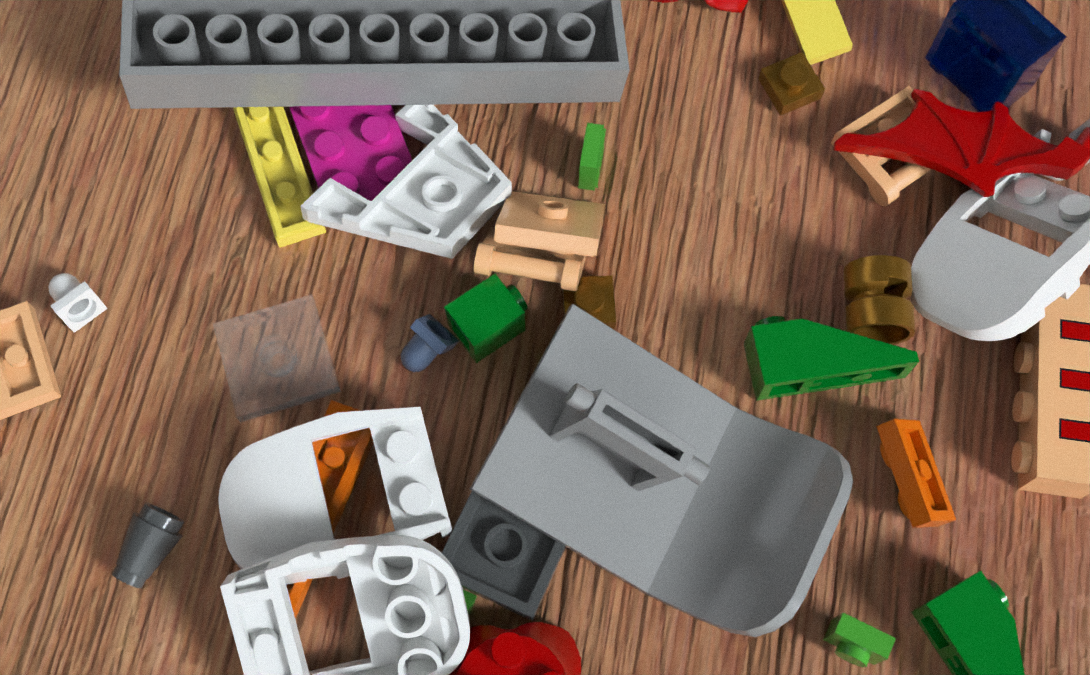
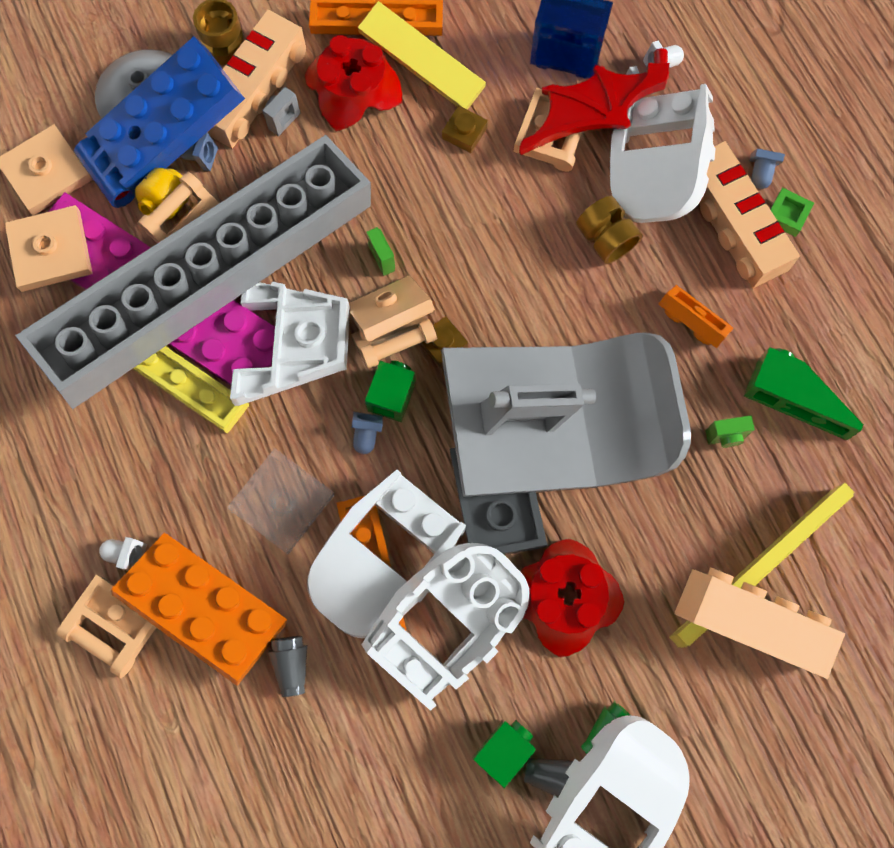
camera: 35 degrees left, 5 degrees up
(102, 414) = (199, 608): none -> orange plate
(814, 357) = (595, 286): green slope -> none

